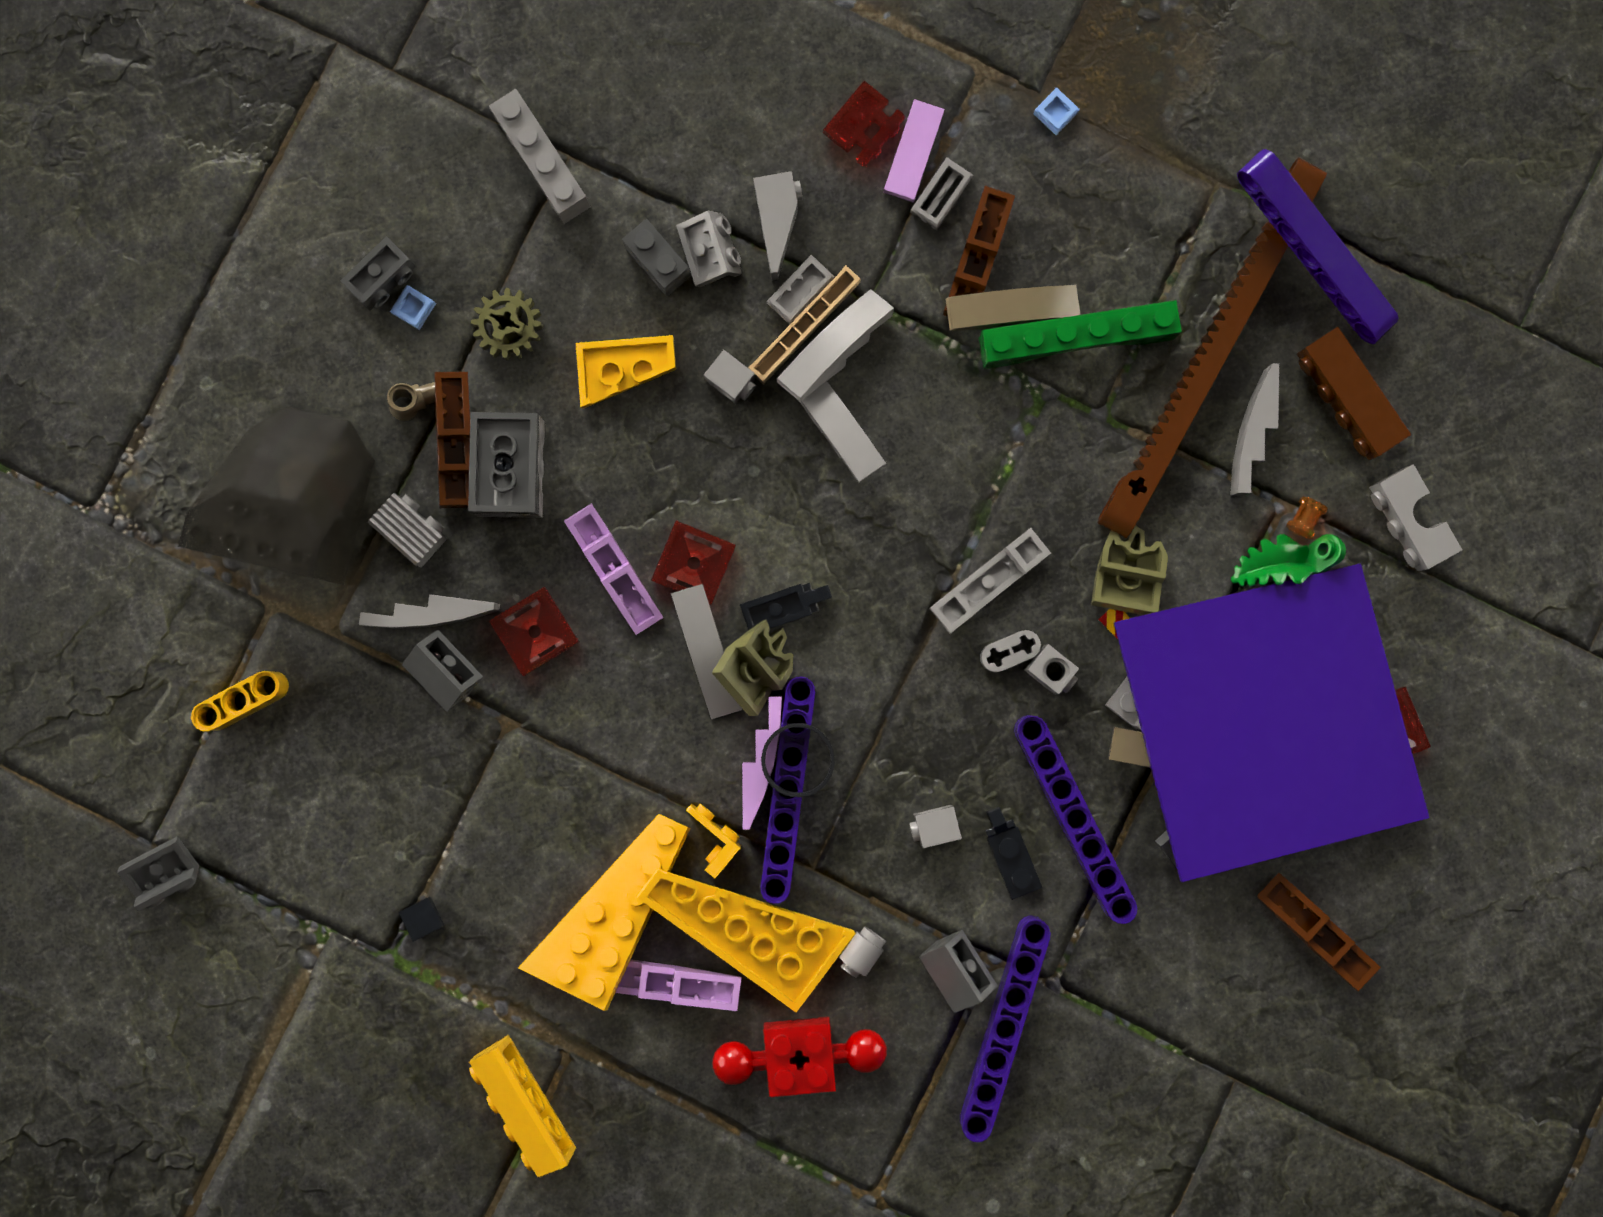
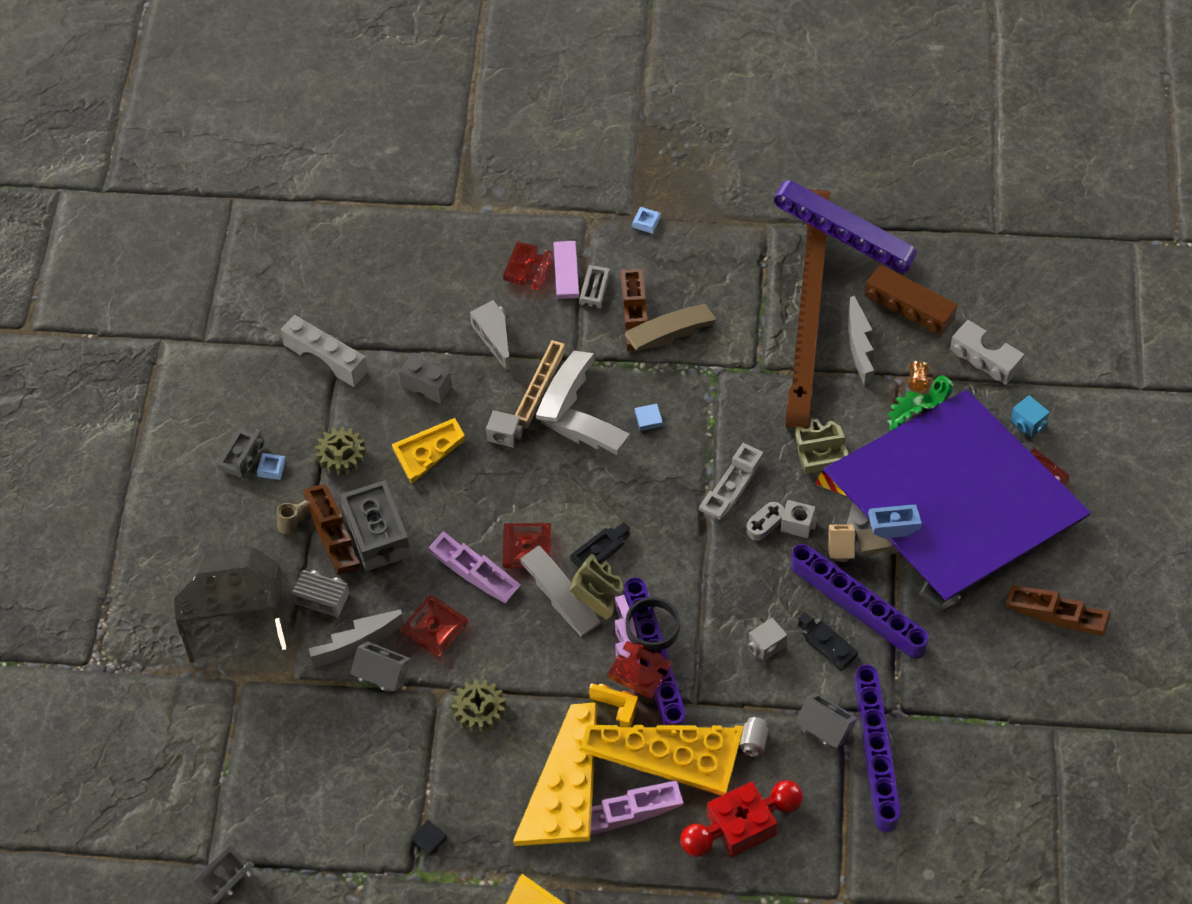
camera: 20 degrees left, 30 degrees down
(225, 705) = (243, 730): yellow beam -> none
(530, 767) = (491, 705): none -> olive gear
(709, 248) = (454, 359): light grey bracket -> none
(748, 822) = (635, 675): none -> clear red plate
(800, 289) = (526, 366): light grey plate -> none
(927, 432) = (648, 417): none -> light blue tile
(1091, 736) = (841, 542): none -> tan brick
(1101, 329) = (684, 343): green arch -> none
(1168, 743) = (895, 521): none -> medium blue slope
(1422, 641) = (1030, 416): none -> dark azure brick

